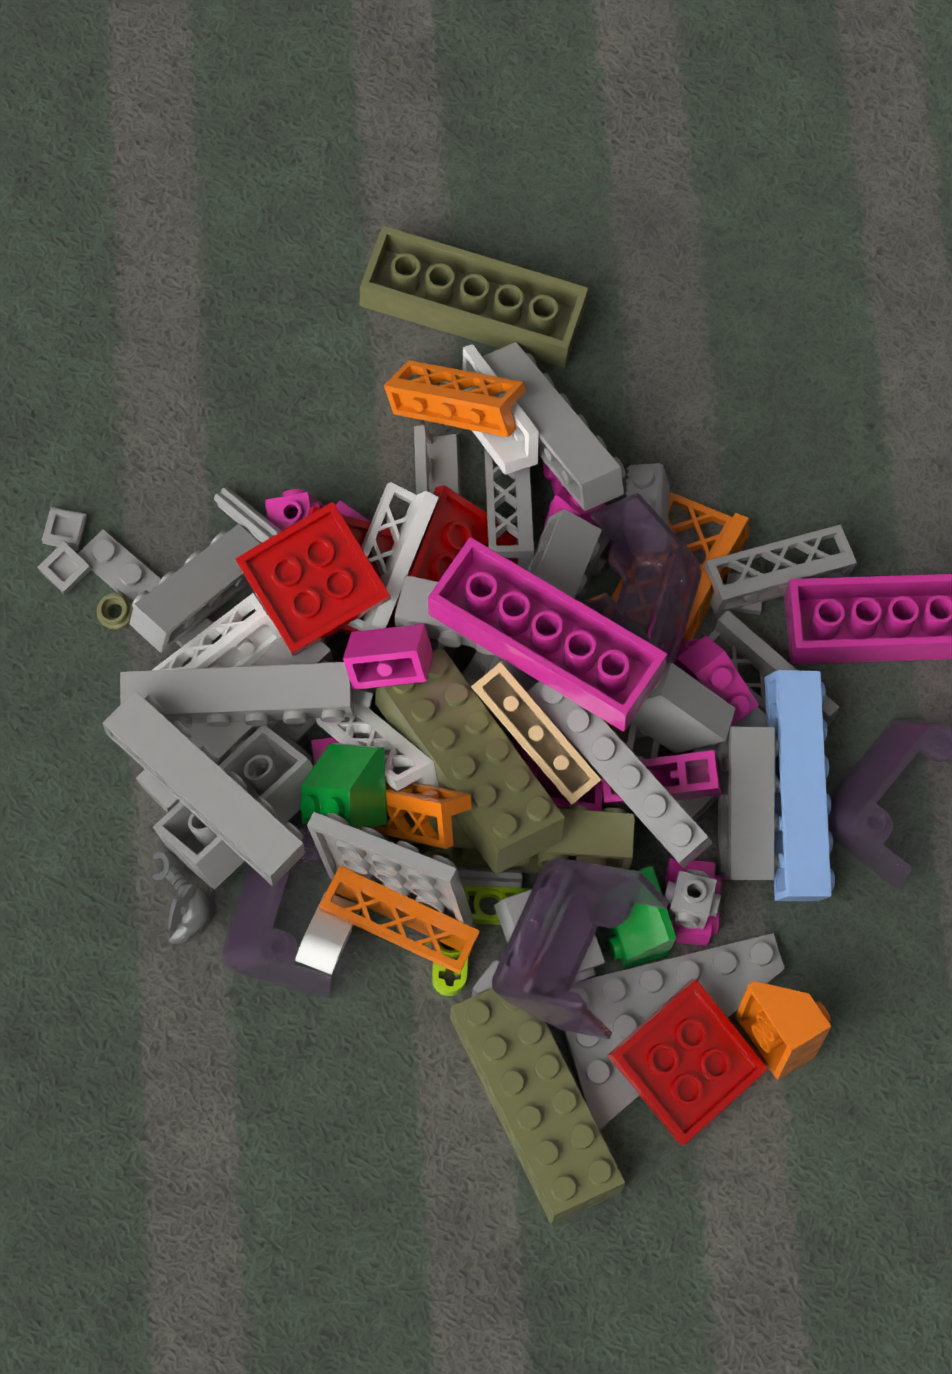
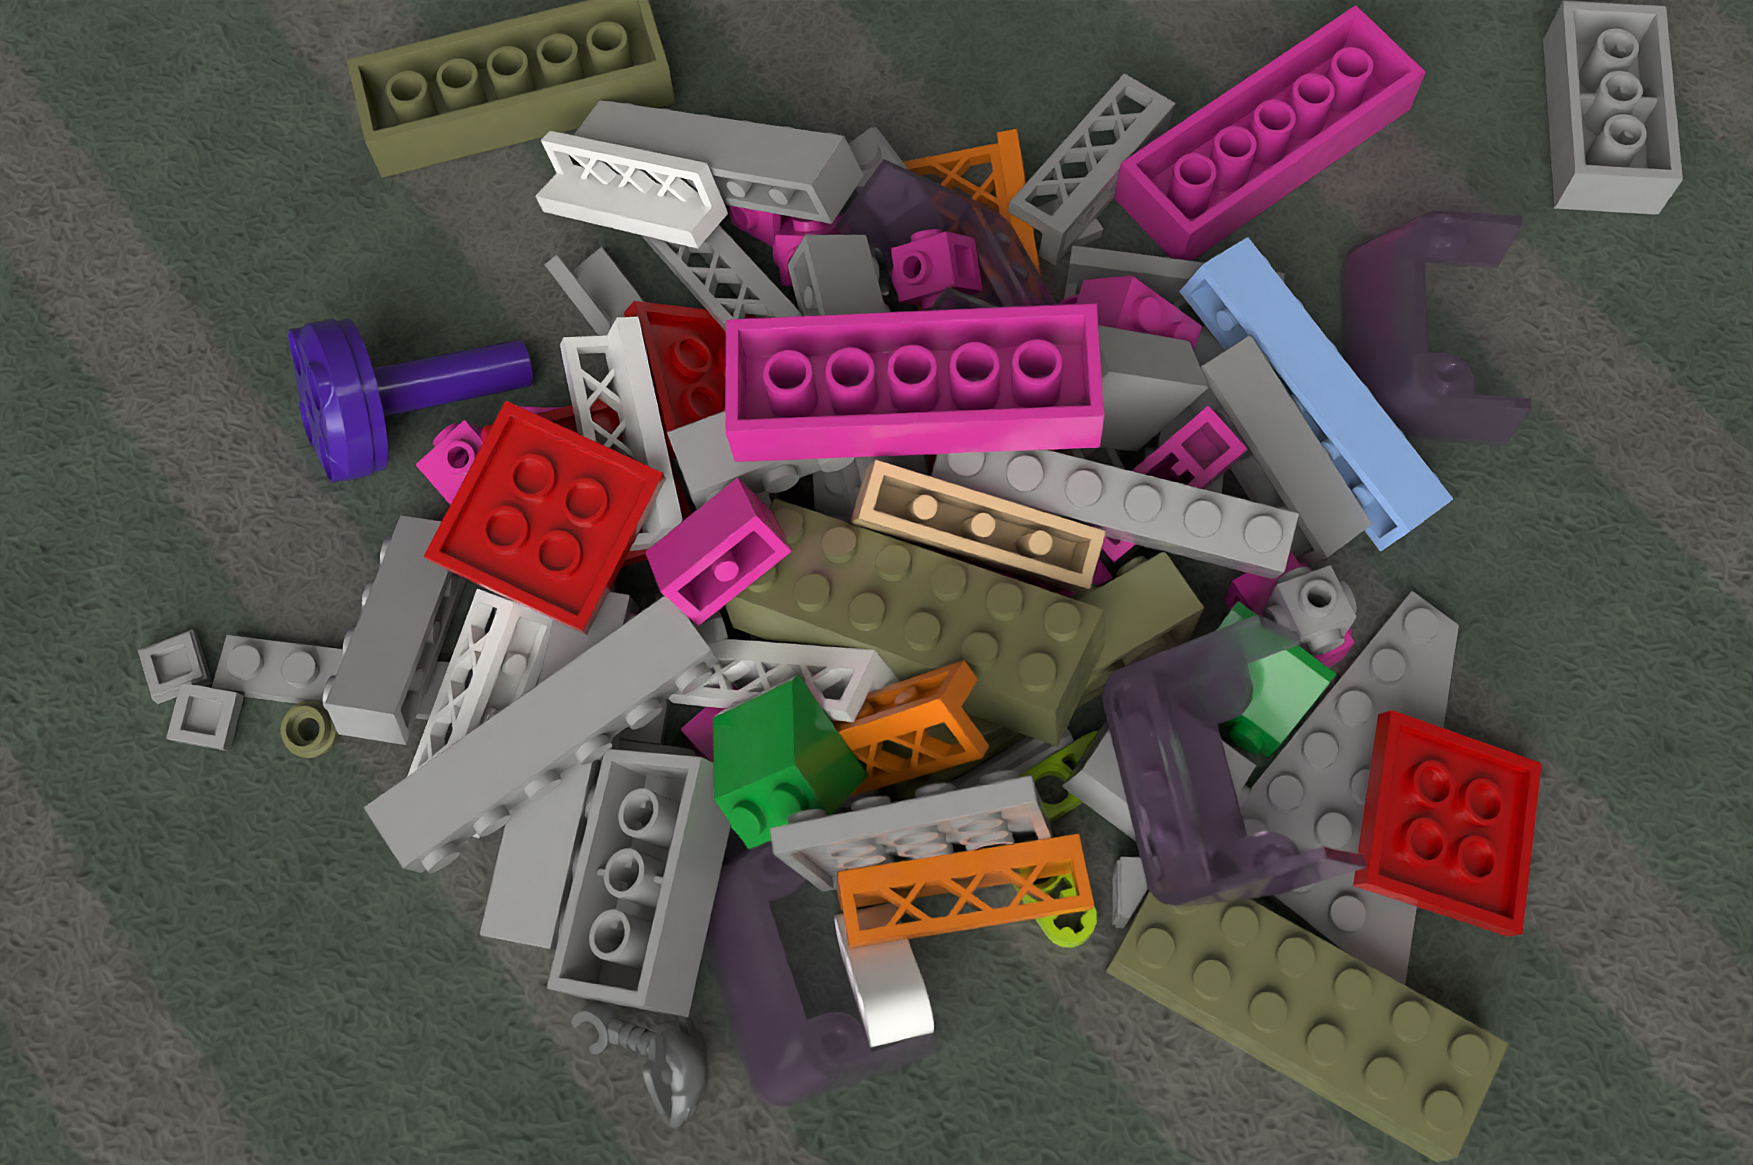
camera: 25 degrees left, 0 degrees up
(204, 787) = (585, 891): light grey brick -> none
(245, 515) = (401, 499): light grey axle -> none
(252, 437) = (347, 398): none -> dark purple piece
(448, 403) = (573, 204): orange fence -> none
(623, 569) = (933, 263): none -> dark pink brick
(783, 1025) = (1547, 698): orange slope -> none

